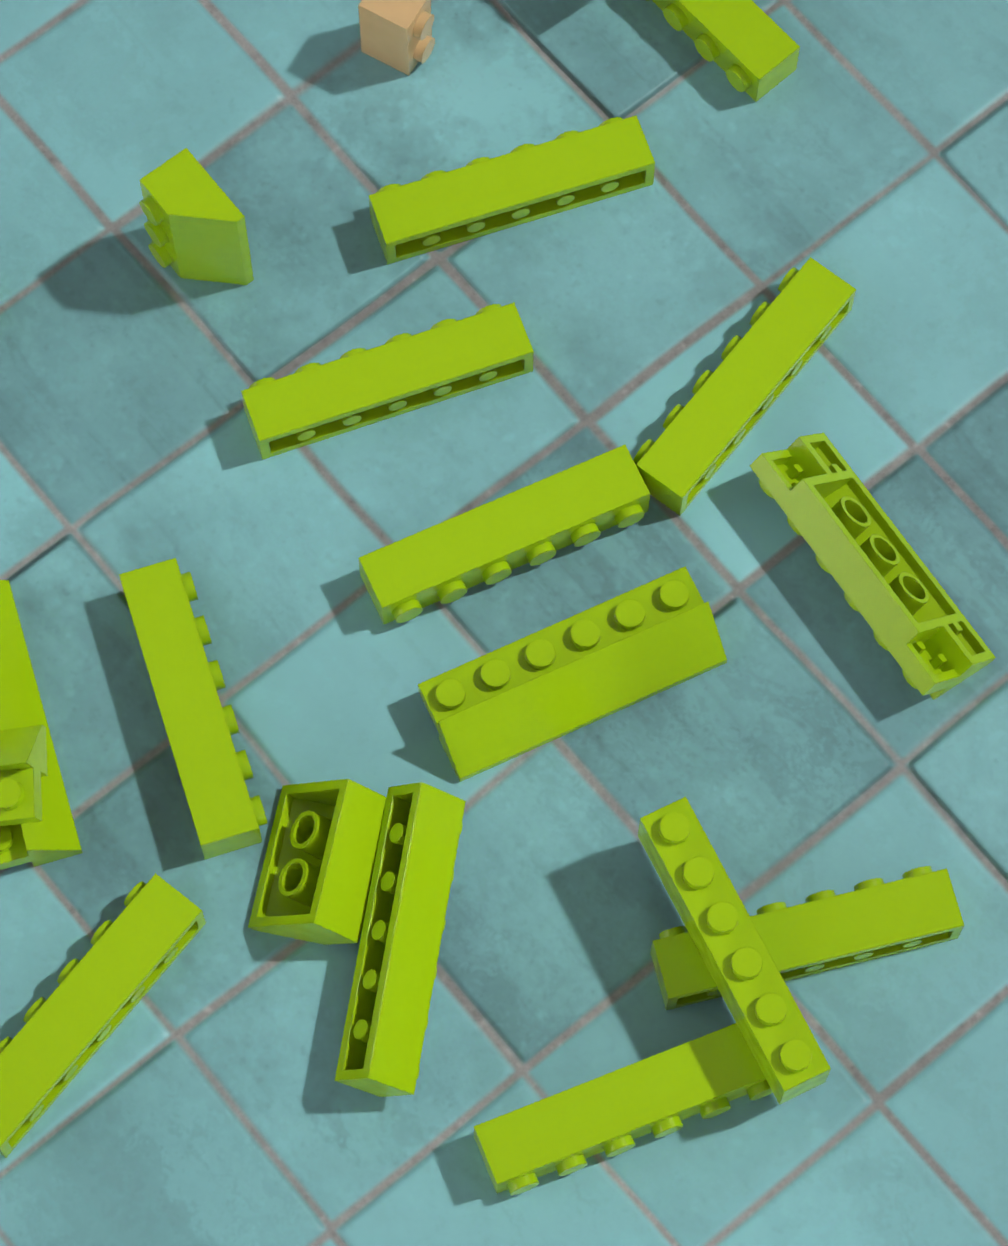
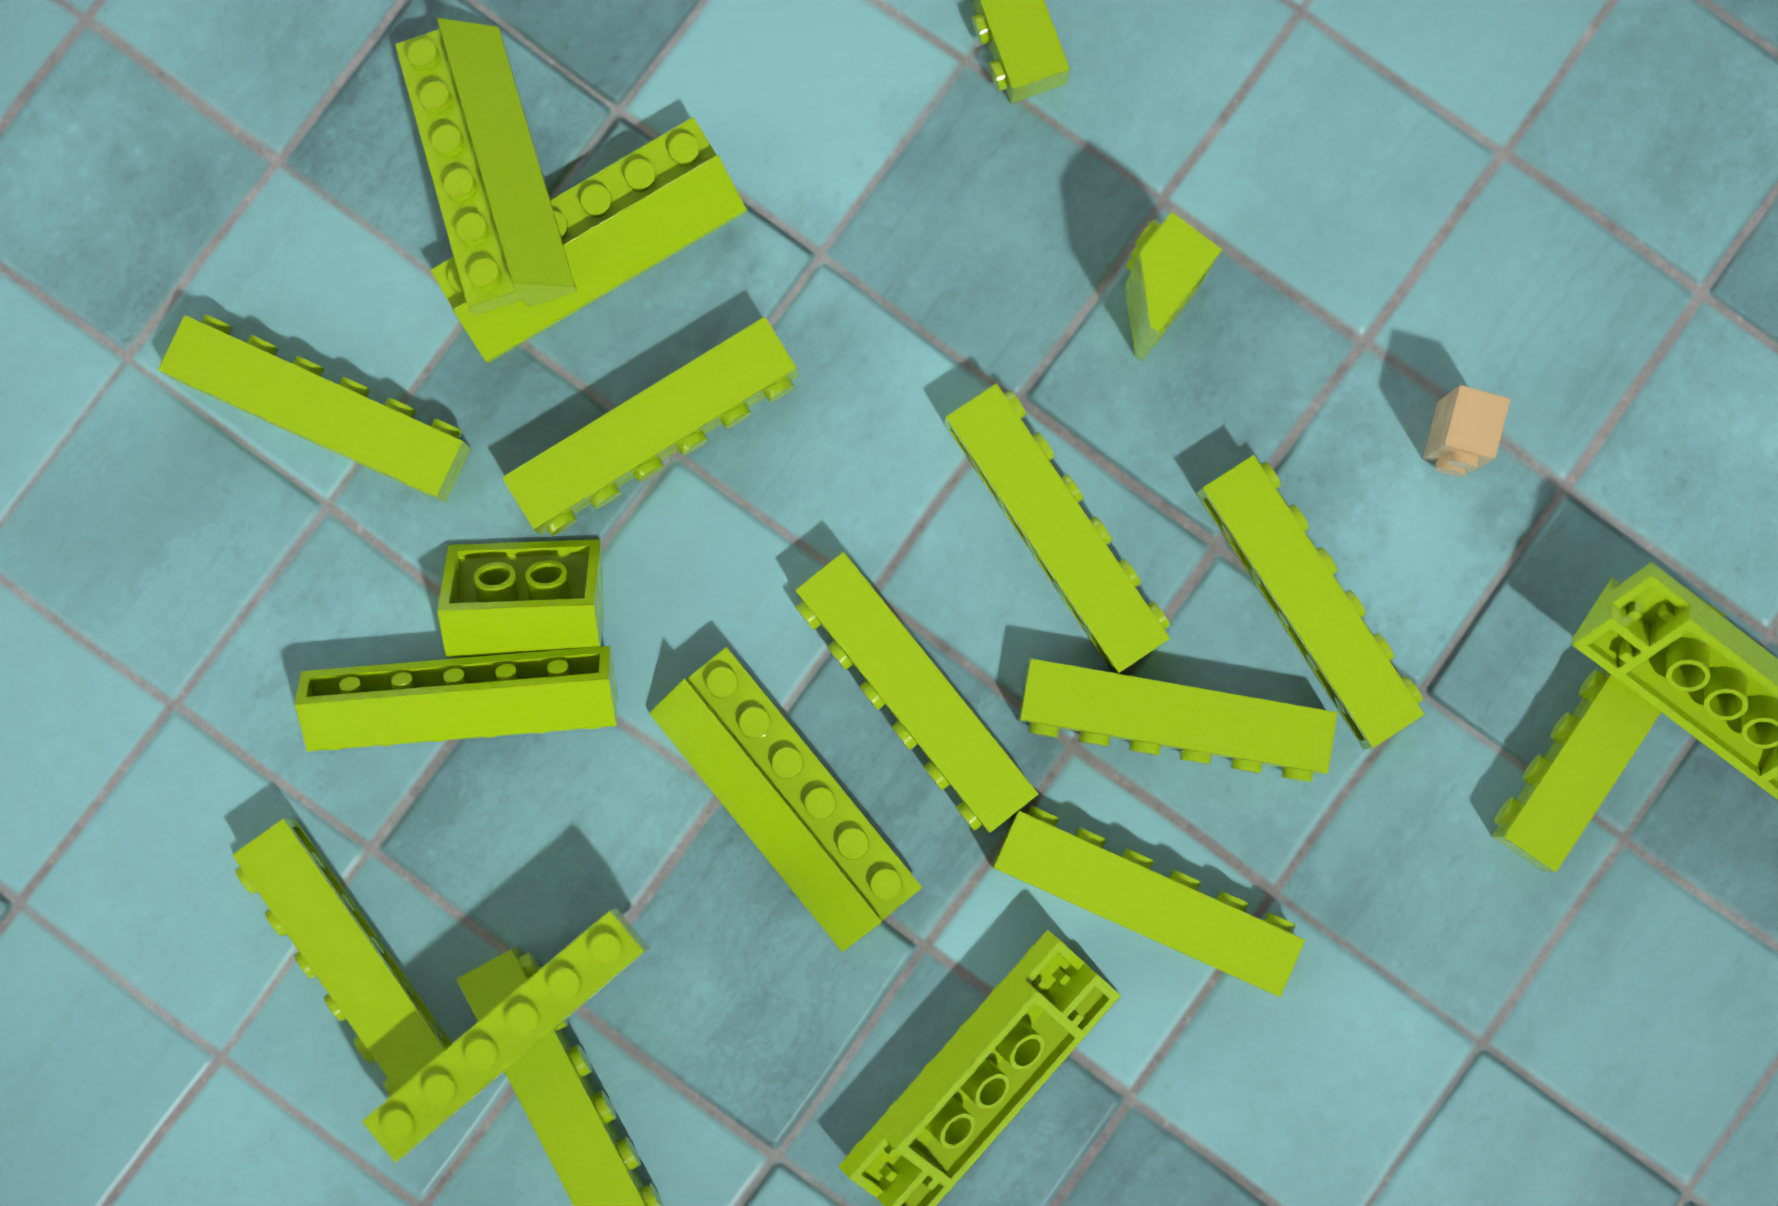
camera: 75 degrees right, 15 degrees up
(585, 323) = (1177, 718): none -> lime brick

